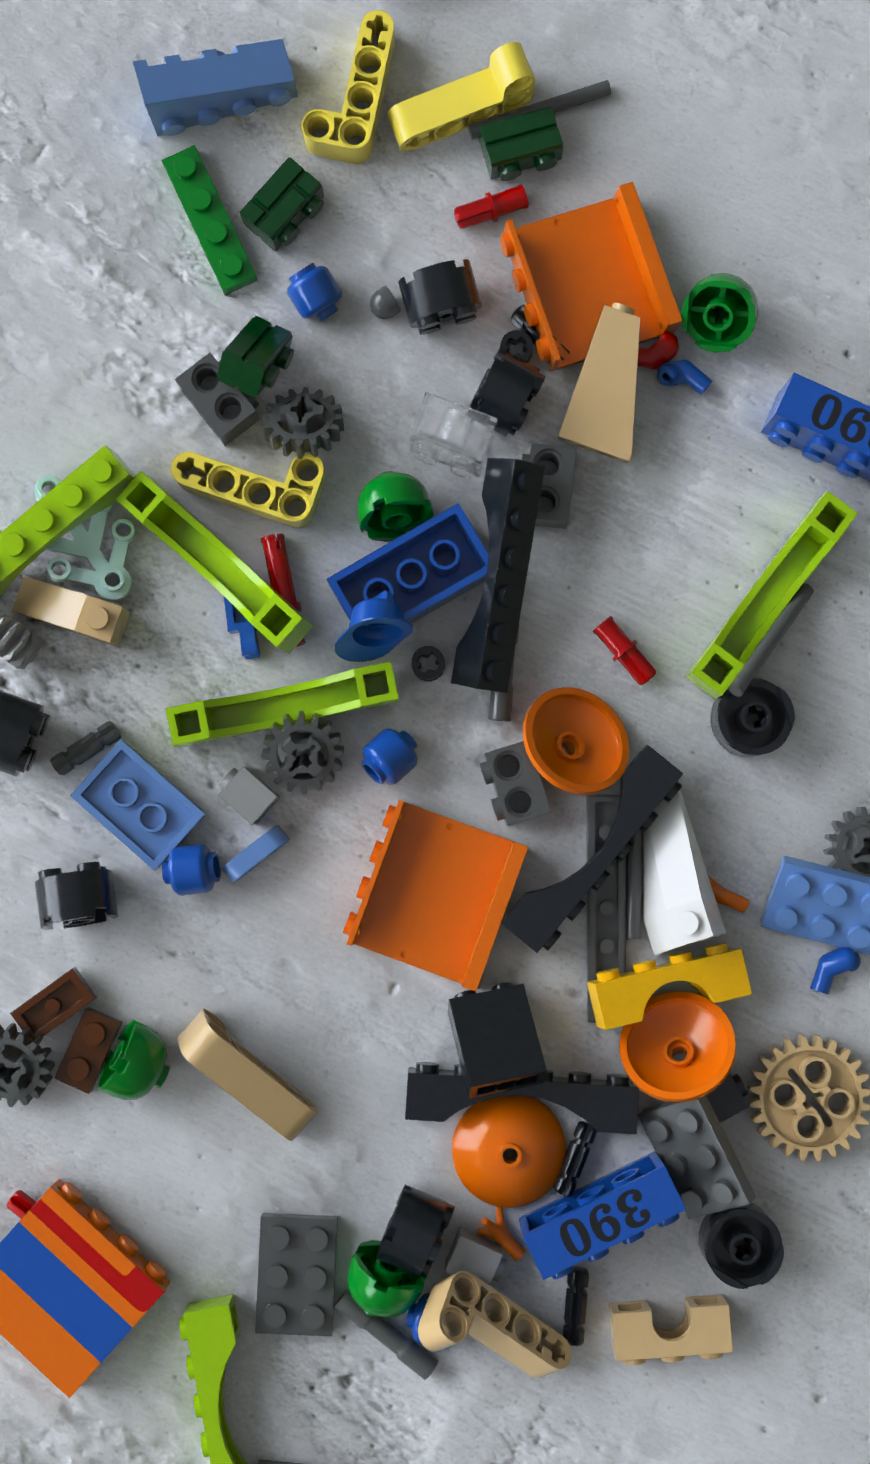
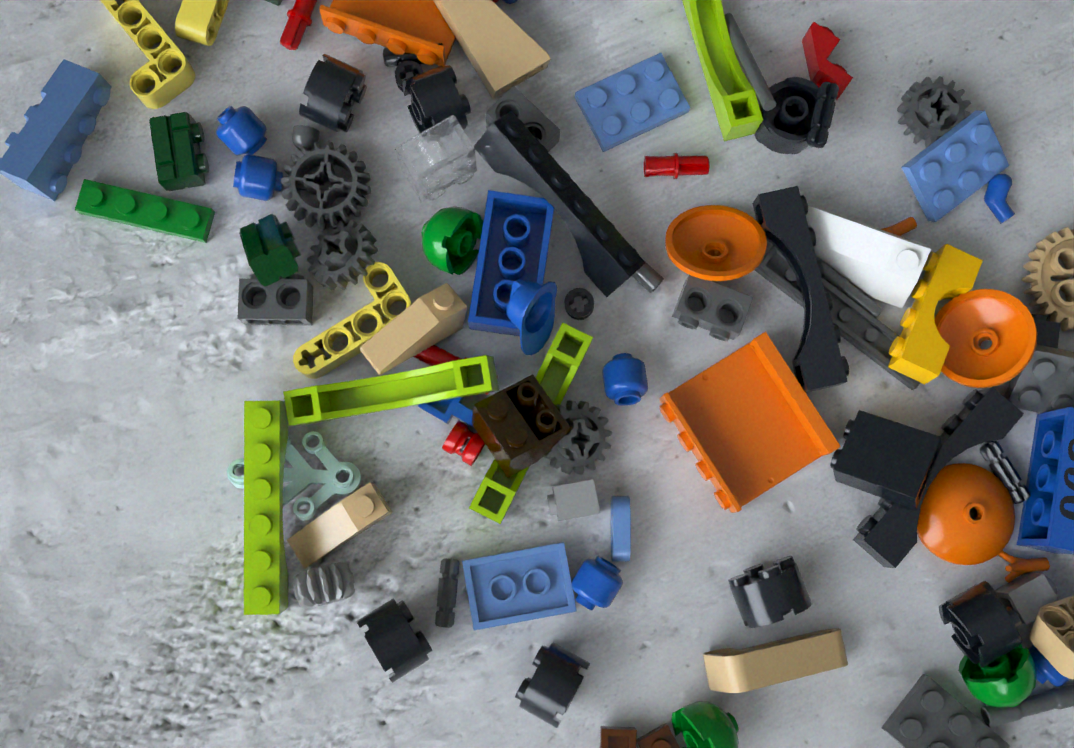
camera: 60 degrees left, 5 degrees down
(223, 652) = (457, 440): none -> red wheel
(271, 694) = (519, 424): none -> dark brown slope
(286, 539) = (416, 329): none -> tan slope
(297, 1024) = (769, 593): none -> black brick
(344, 243) = (241, 130): none -> blue head
(367, 347) = (326, 159): none -> dark grey gear
(654, 565) = (632, 102): none -> medium blue plate
(767, 745) = (822, 115): none -> black axle
(844, 695) = (817, 47): none -> red slope

